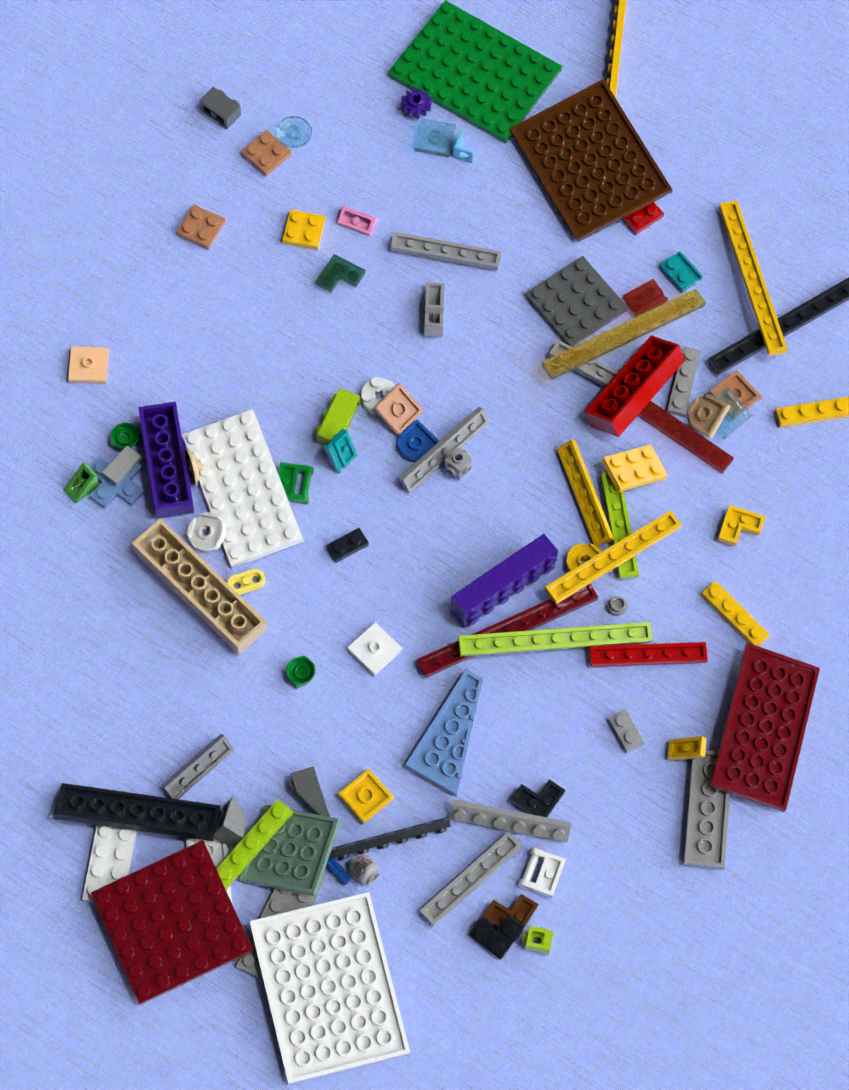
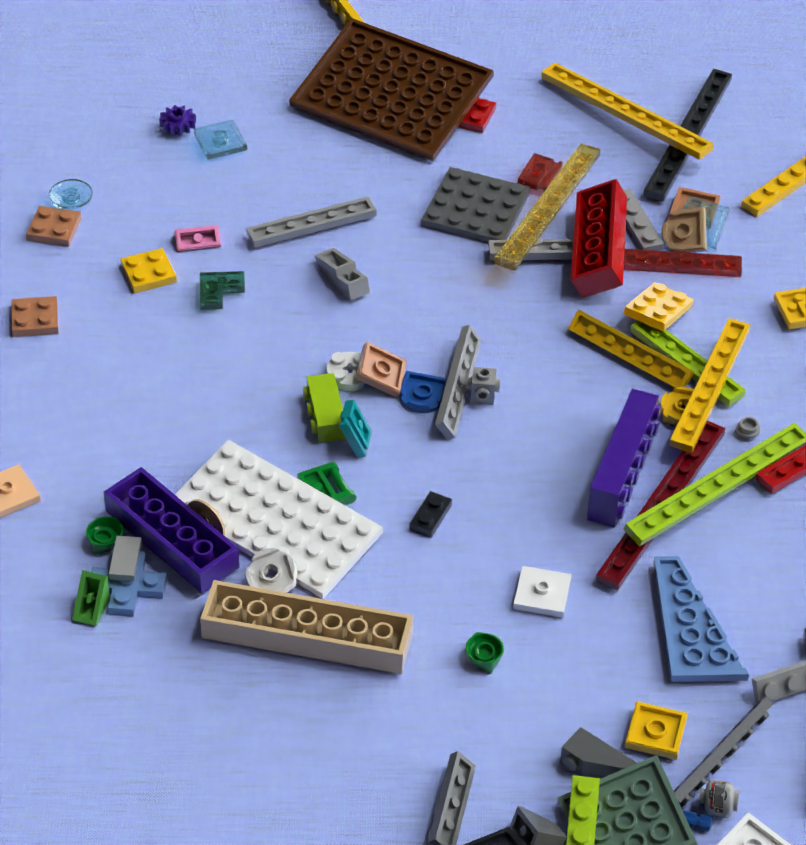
camera: 30 degrees left, 20 degrees down
(245, 581) = (351, 592): light yellow plate -> none
(457, 149) = (251, 136): medium azure bracket -> none
(475, 71) = (213, 74): green plate -> none
(680, 271) = (552, 140): teal plate -> none

